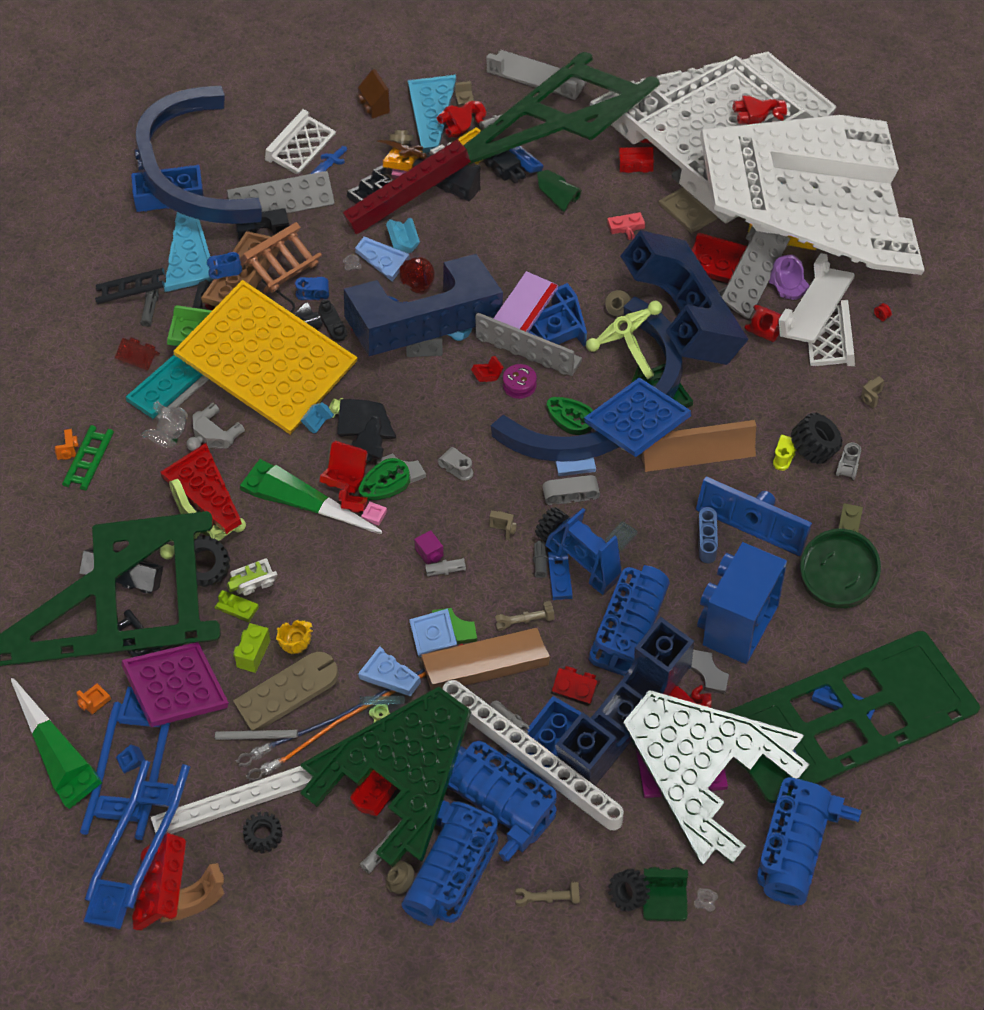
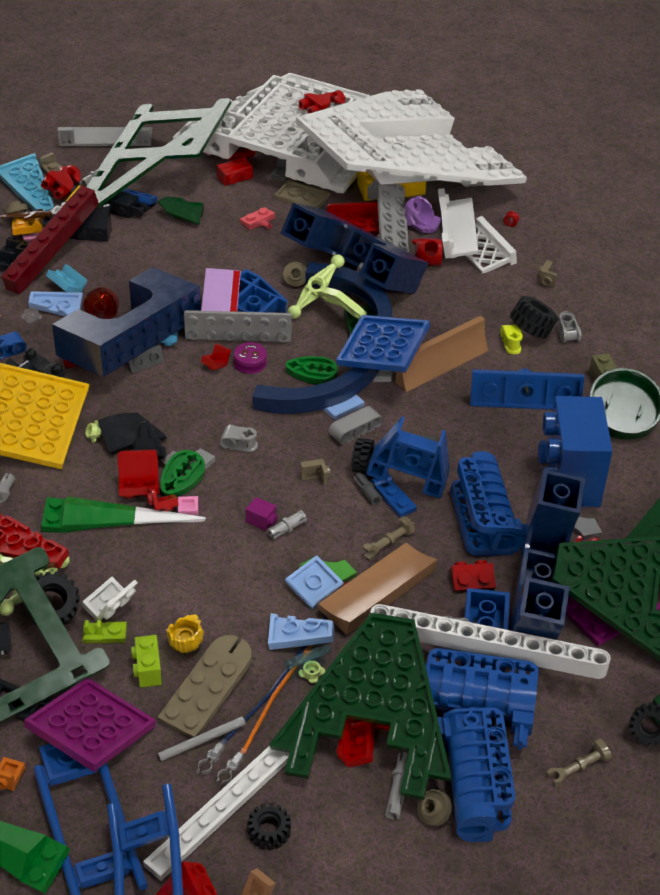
camera: 30 degrees left, 10 degrees down
(130, 758) = (82, 816): blue slope -> none
(250, 575) = (97, 605): lime plate -> none
(316, 416) = (80, 443): dark azure bracket -> none
(707, 526) = (497, 419): medium blue beam -> none

